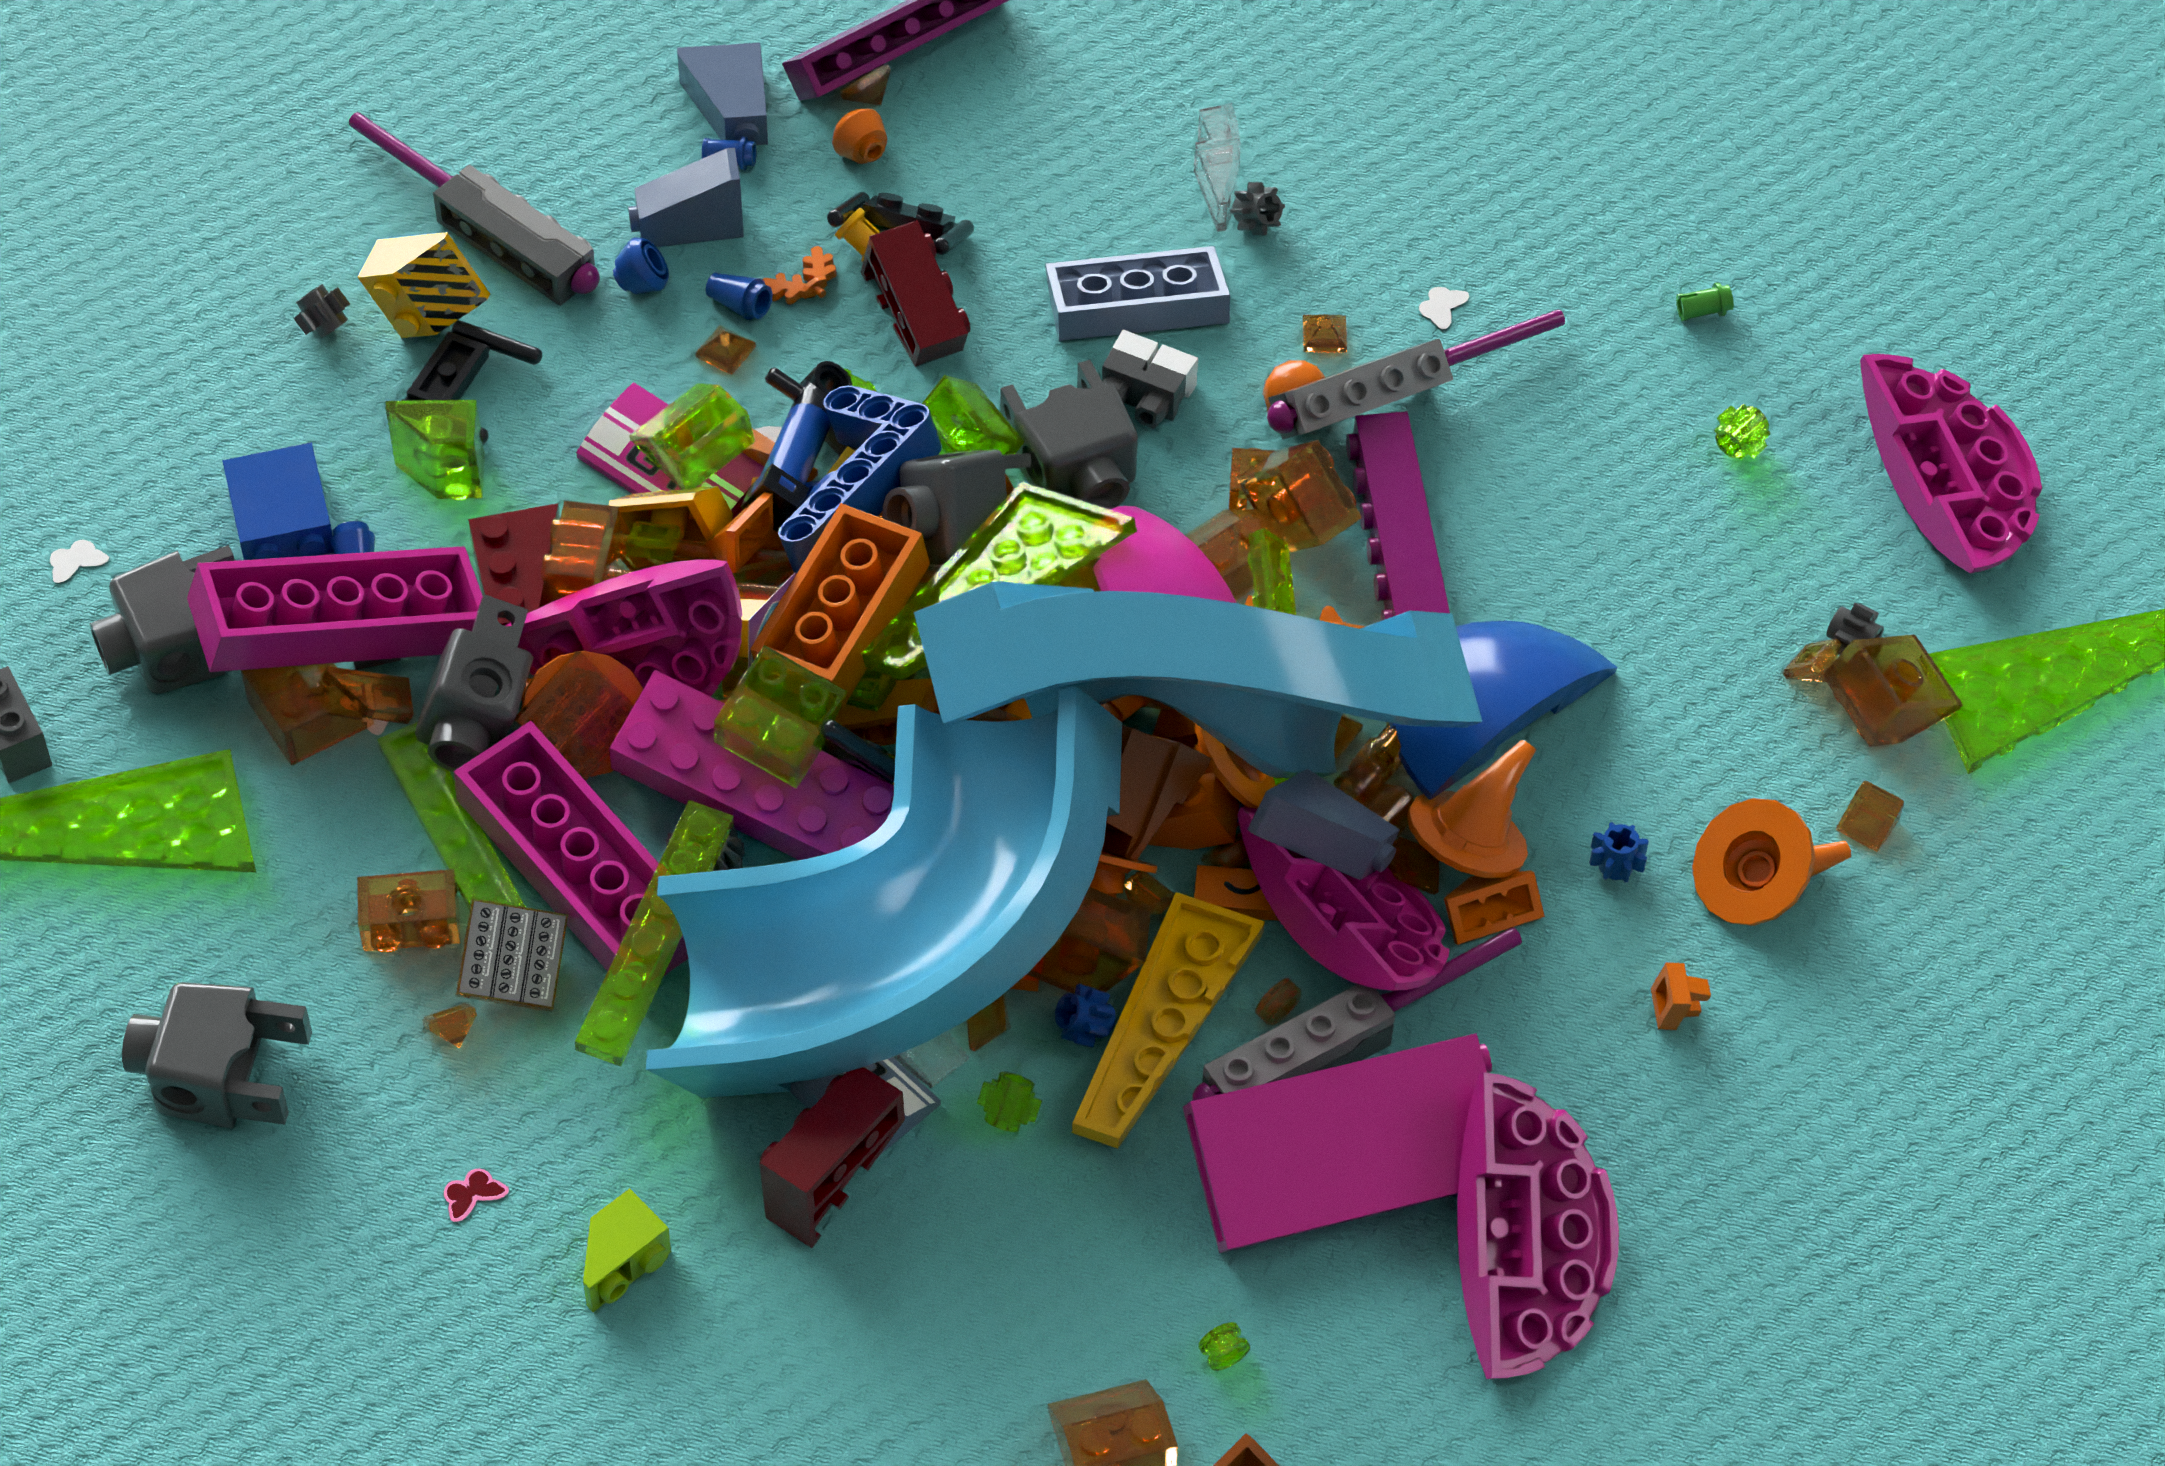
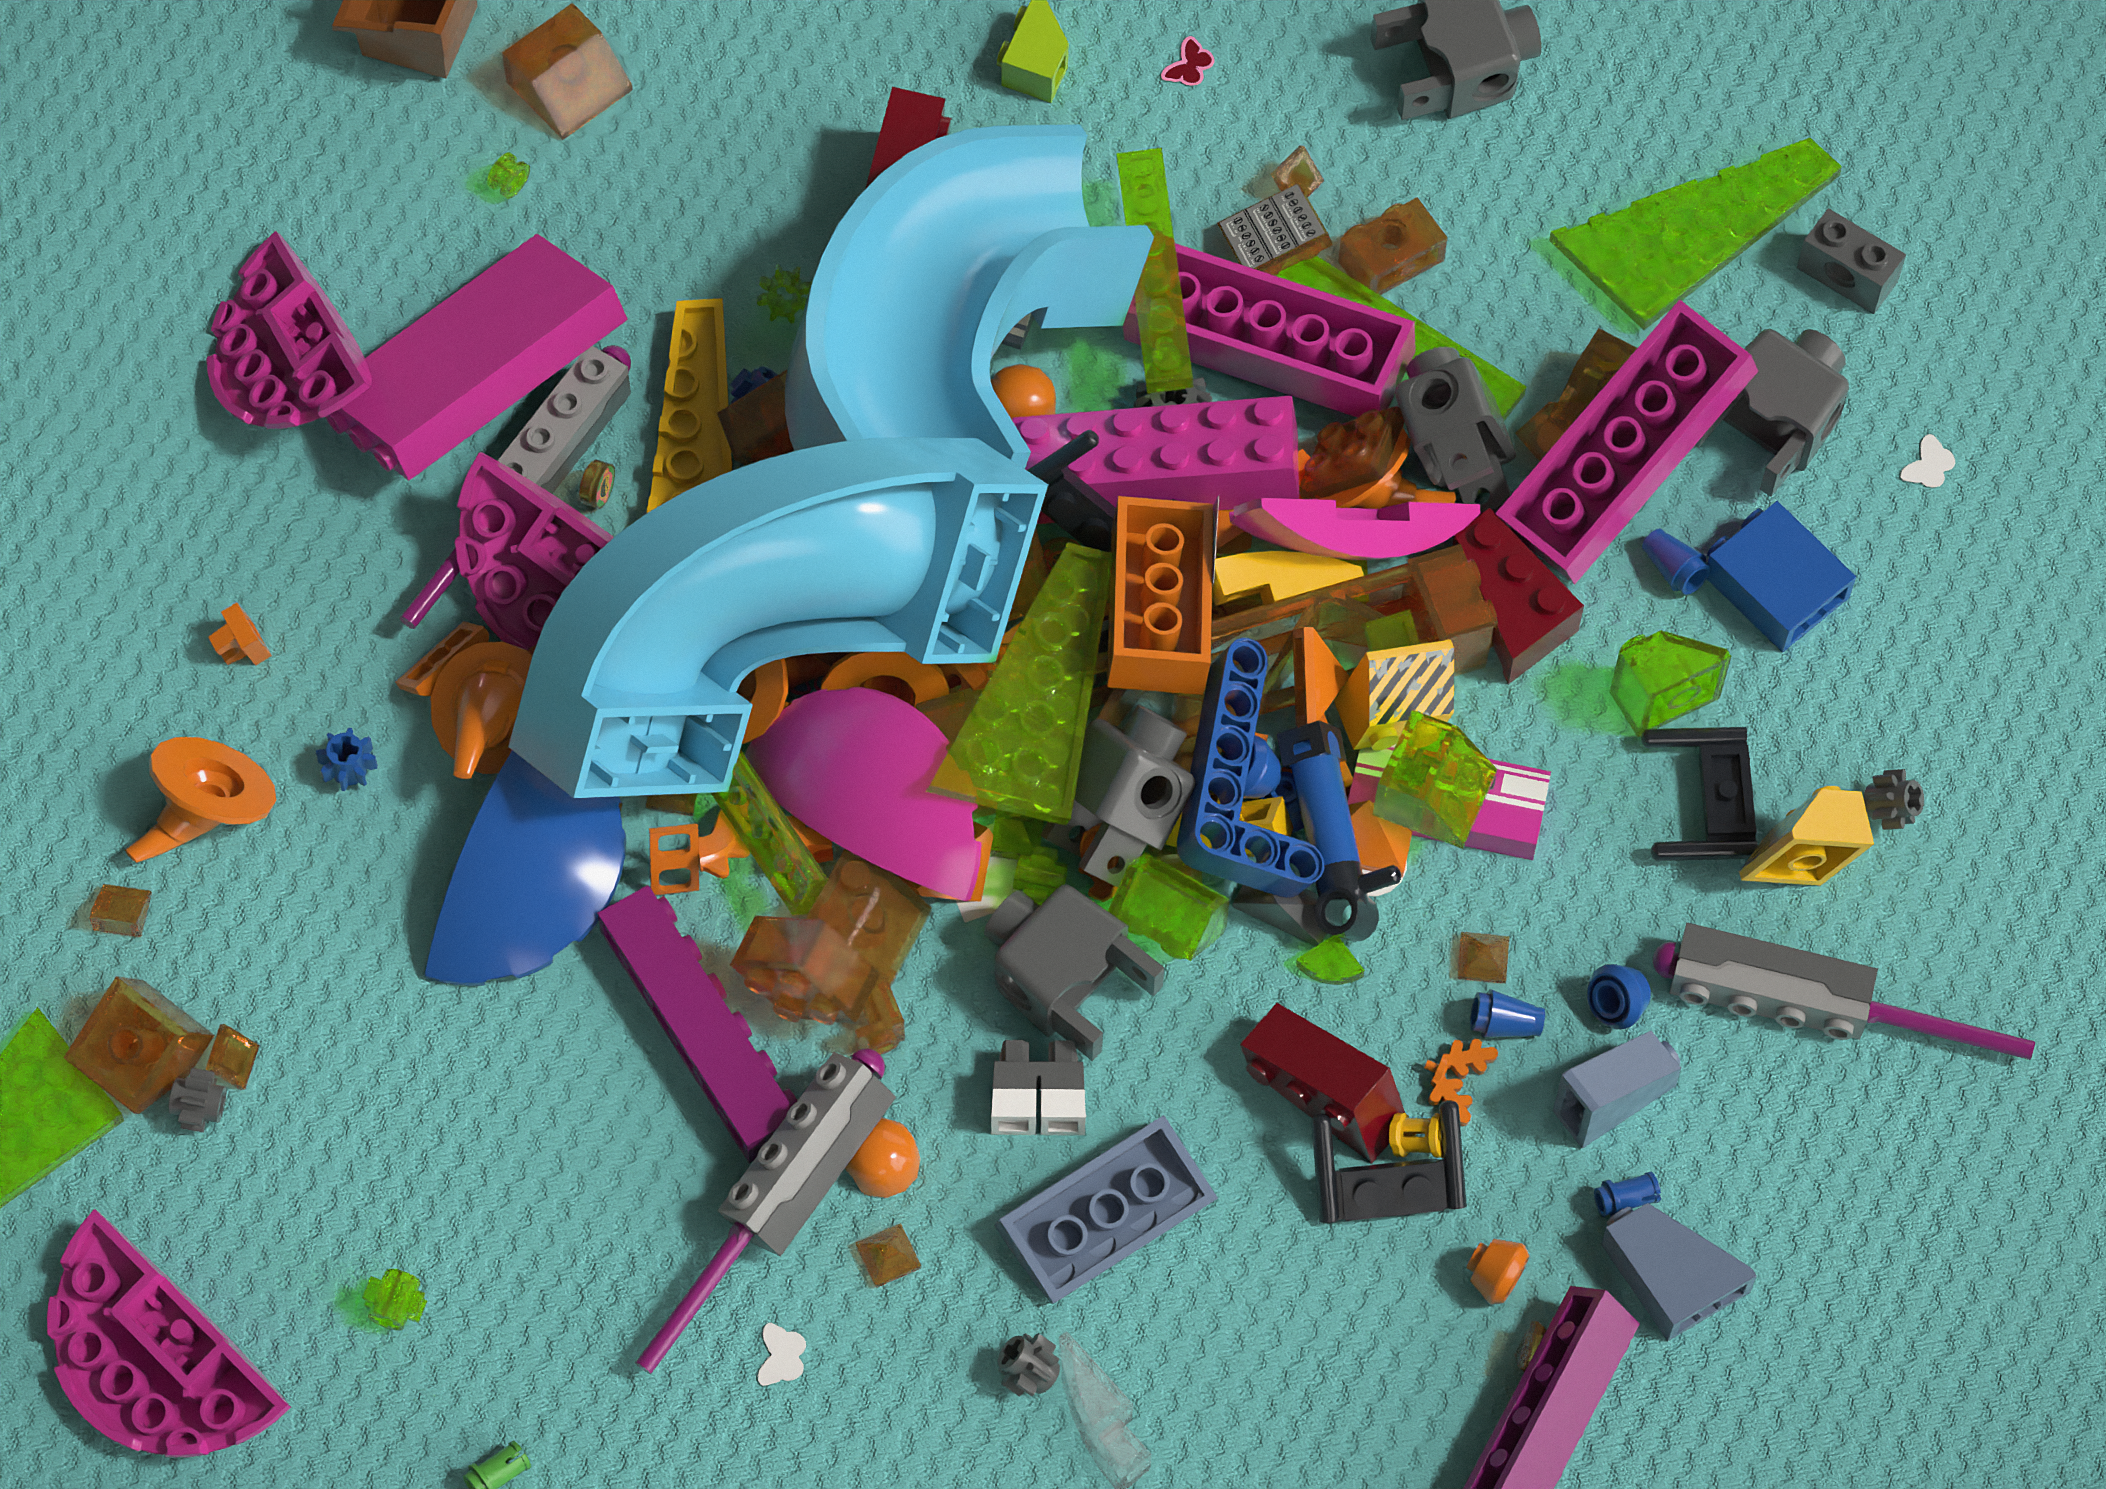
camera: 155 degrees right, 10 degrees up
(778, 716) = (1147, 439): clear neon green slope -> none

